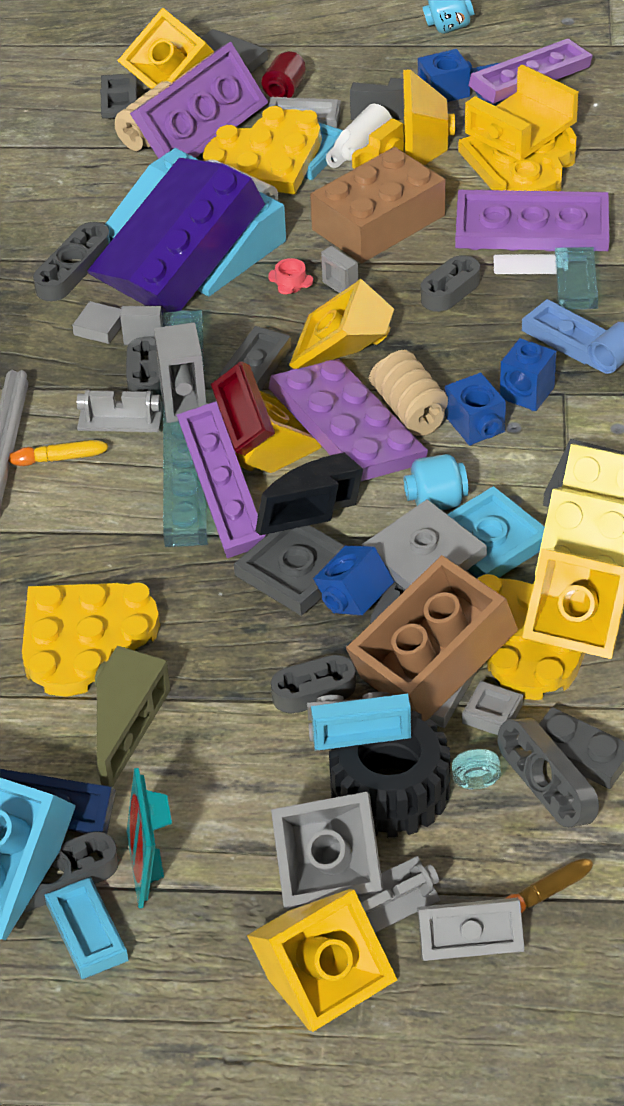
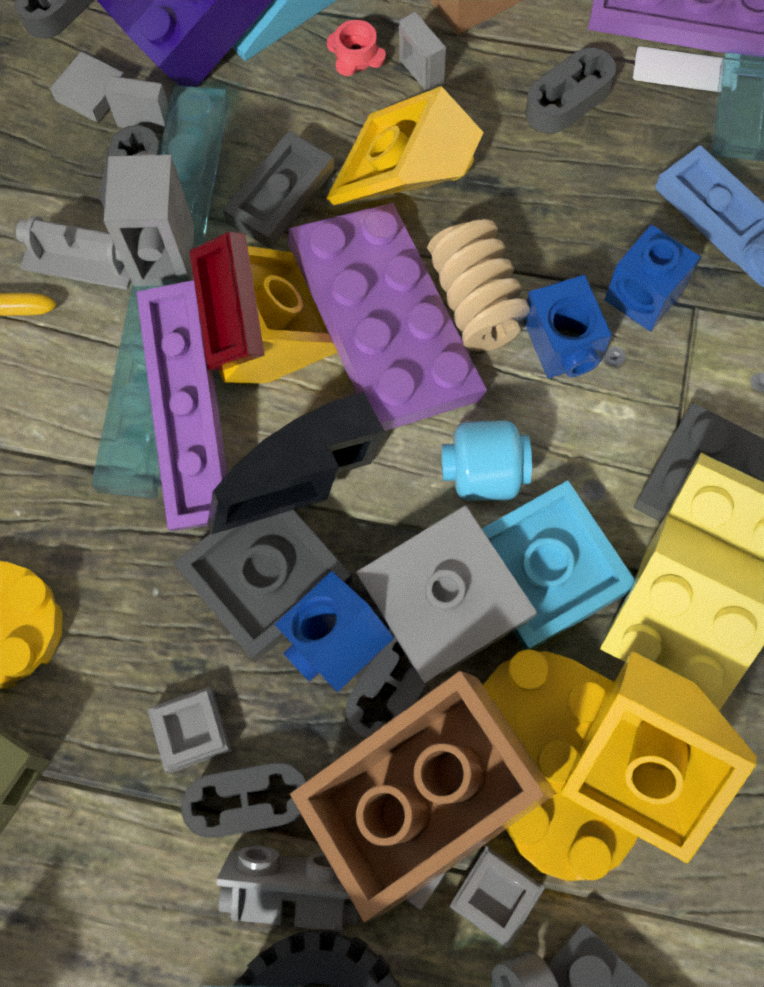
camera: 10 degrees right, 25 degrees up
(263, 656) = (189, 730): none -> light grey tile

